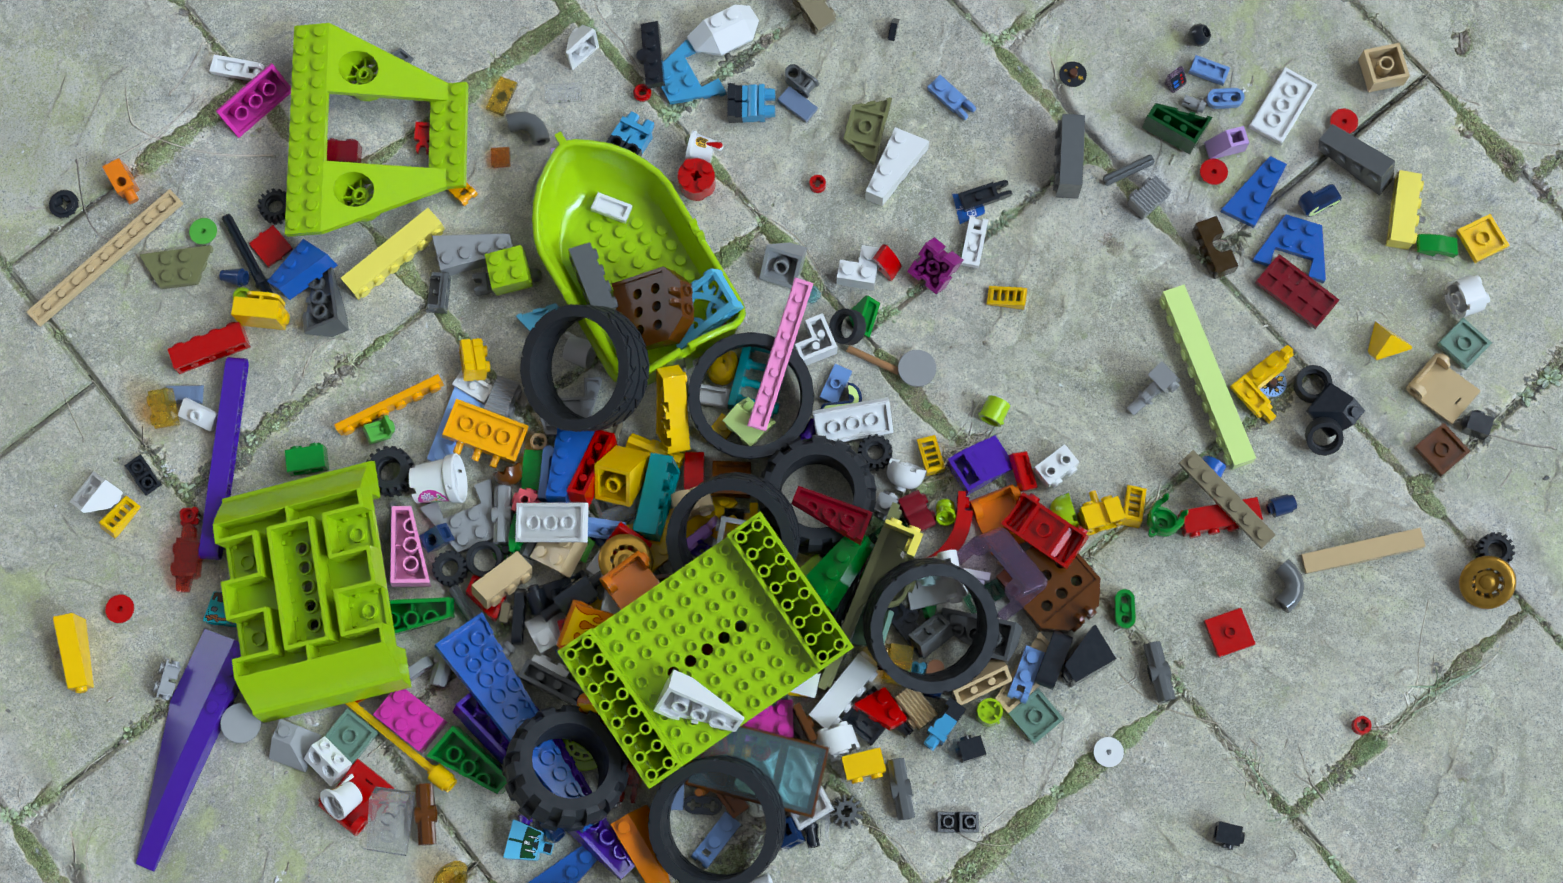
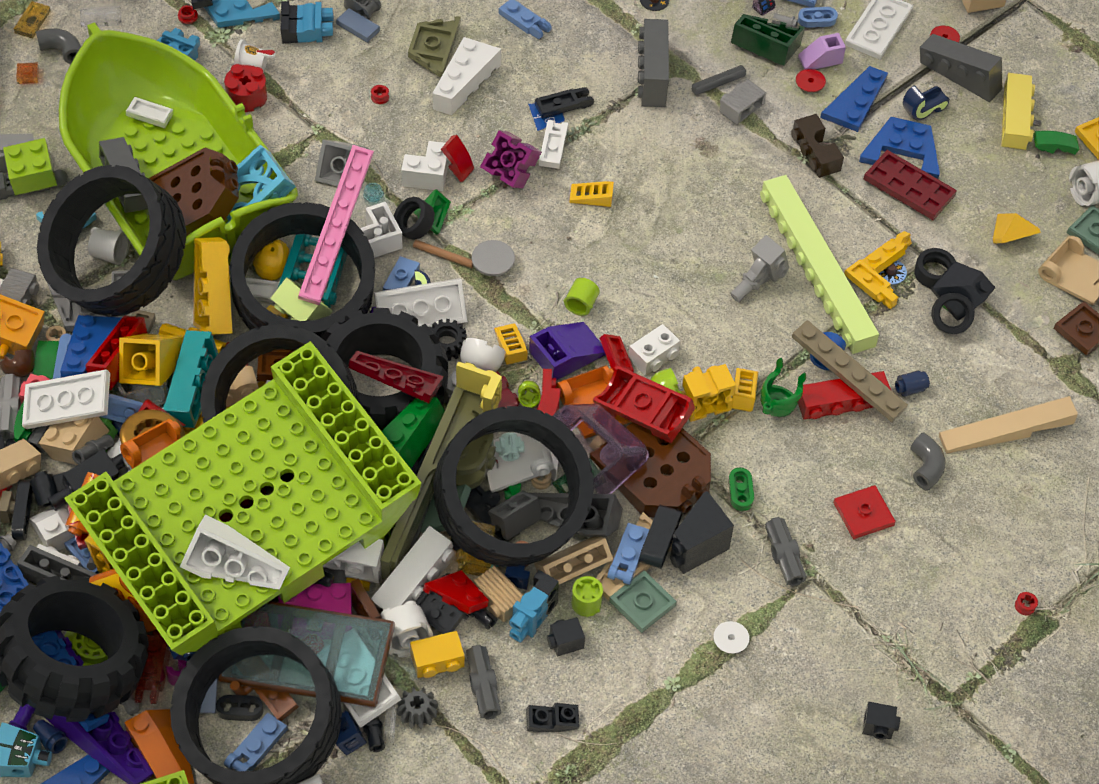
camera: 10 degrees left, 20 degrees down
(575, 567) = (92, 447): none -> dark grey pin

